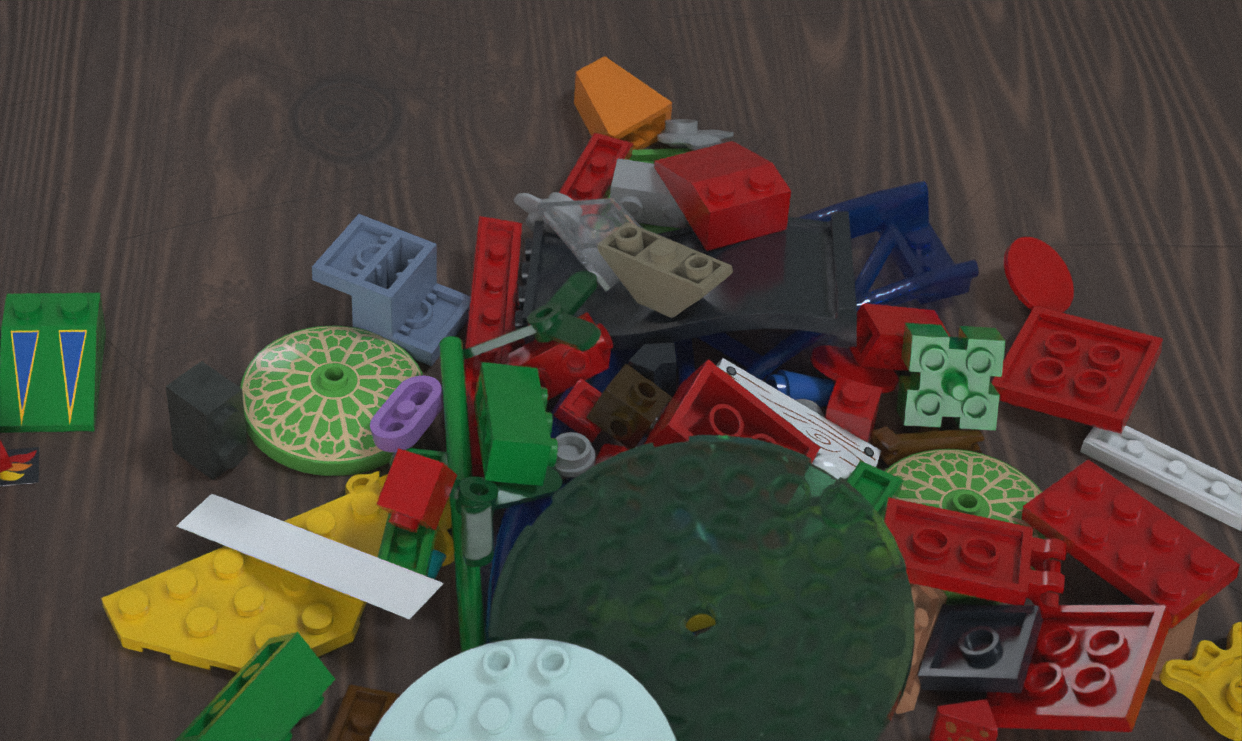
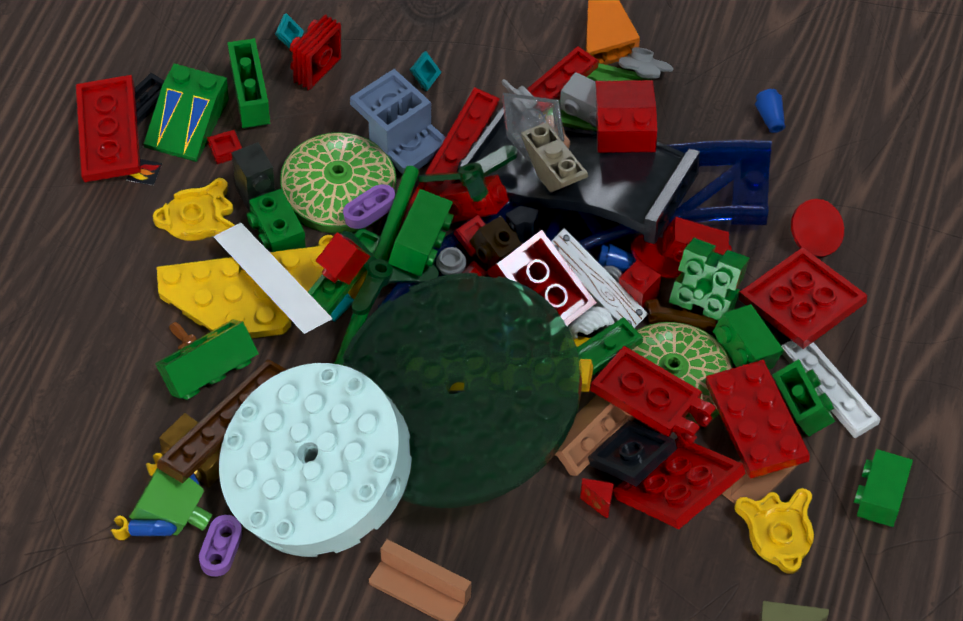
camera: 25 degrees right, 10 degrees up
(129, 502) = (196, 212): none -> yellow tile
(132, 396) = (222, 146): none -> red tile
(135, 295) = (248, 83): none -> green brick
(161, 219) = (288, 30): none -> teal slope
(185, 690) = (180, 333): none -> dark orange piece
(220, 227) = (316, 51): none -> red brick
(268, 476) = (276, 222): none -> green brick
(389, 212) = (425, 71): none -> teal slope
(887, 152) = (770, 107): none -> blue cone
(1040, 441) = (747, 337): none -> green brick
(1171, 489) = (803, 397): none -> green brick

